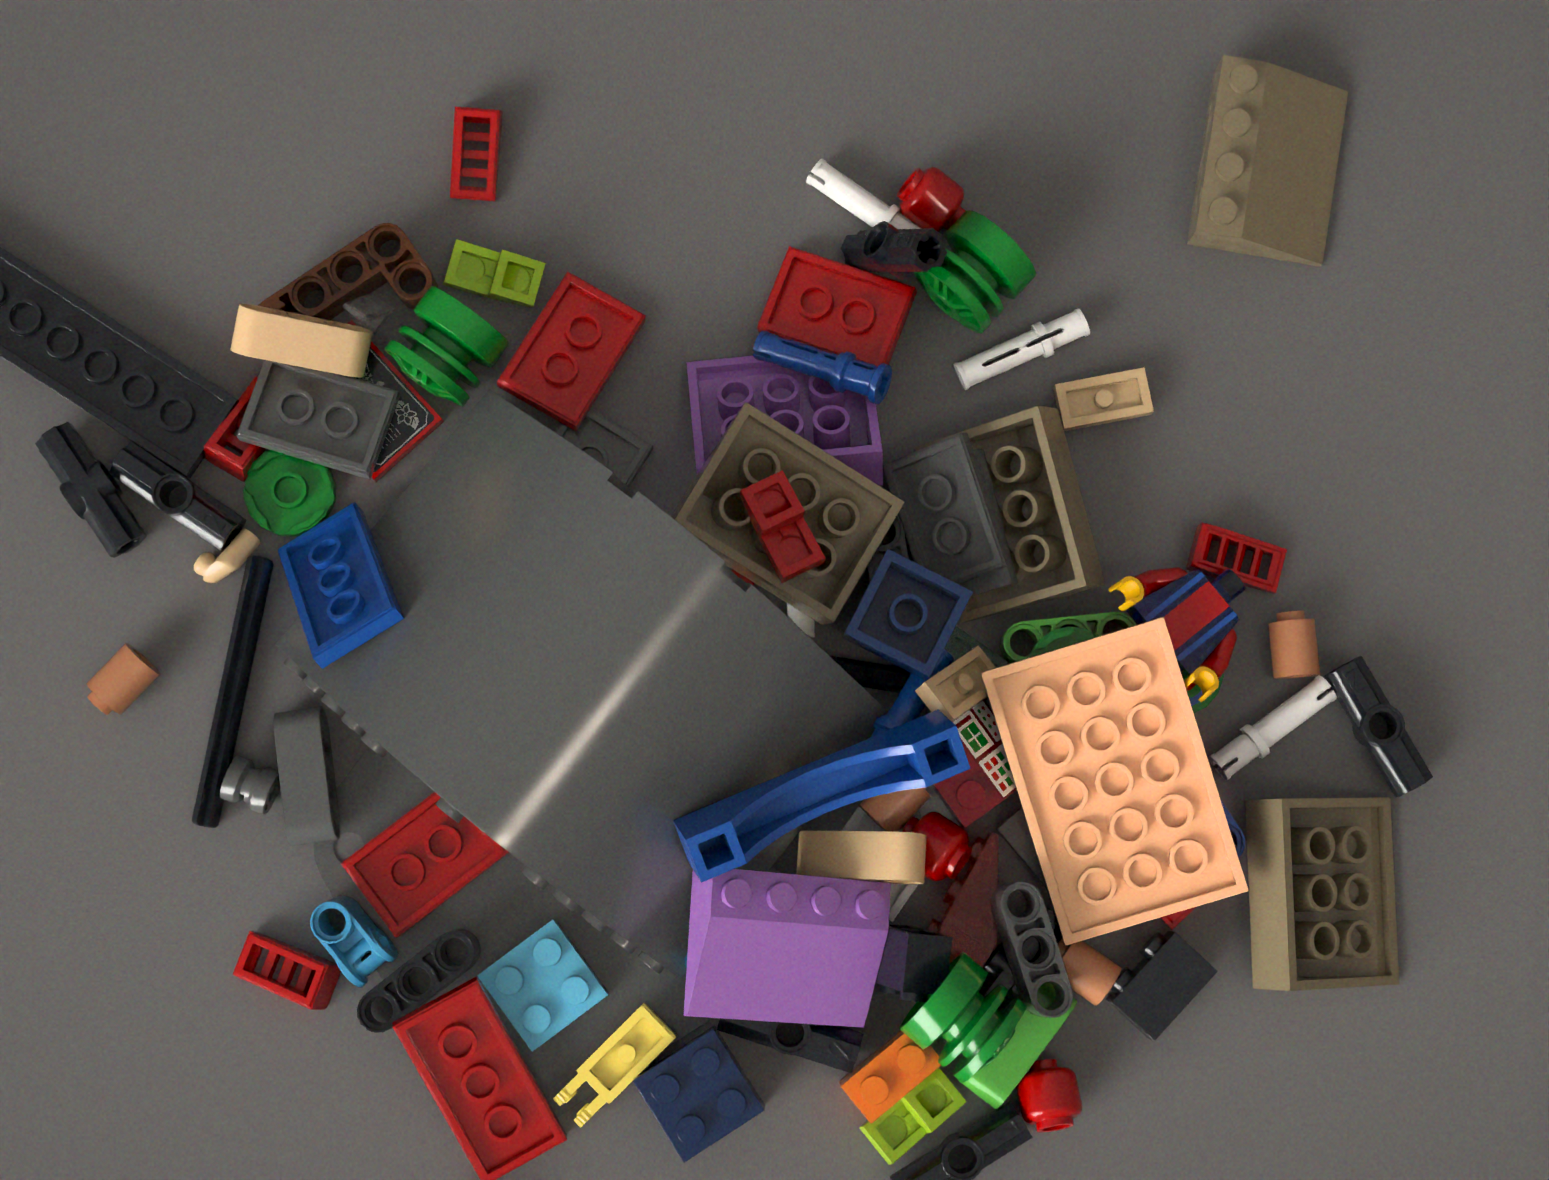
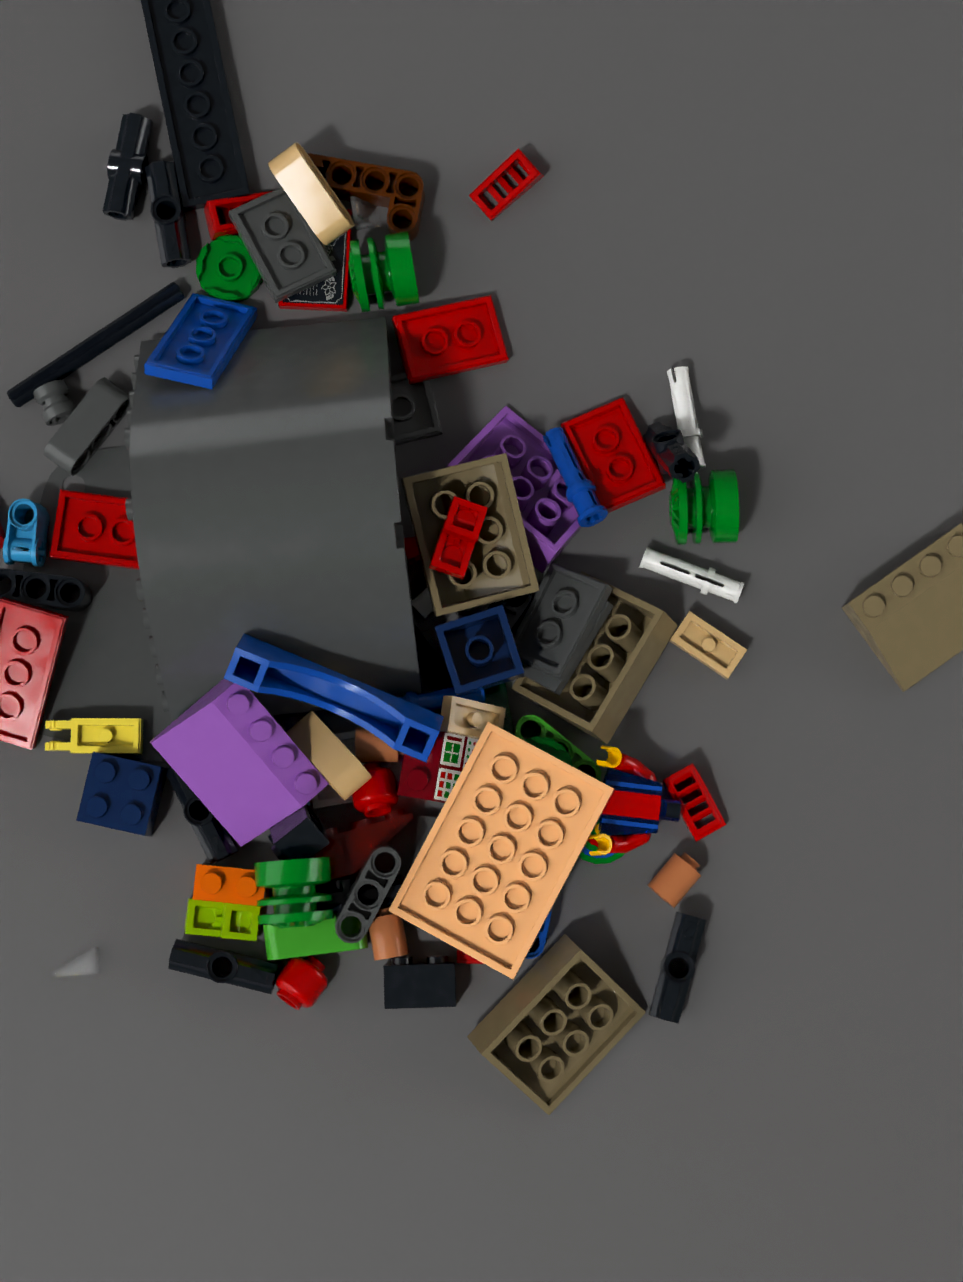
camera: 50 degrees right, 0 degrees up
(121, 680) = (44, 282): nougat brick -> none
(231, 559) = (162, 274): tan arm -> none
(494, 274) = (451, 258): lime slope -> none
(543, 985) = (100, 657): medium azure plate -> none
(931, 199) = (723, 446): red head -> none
(1257, 739) = (618, 910): white pin -> none

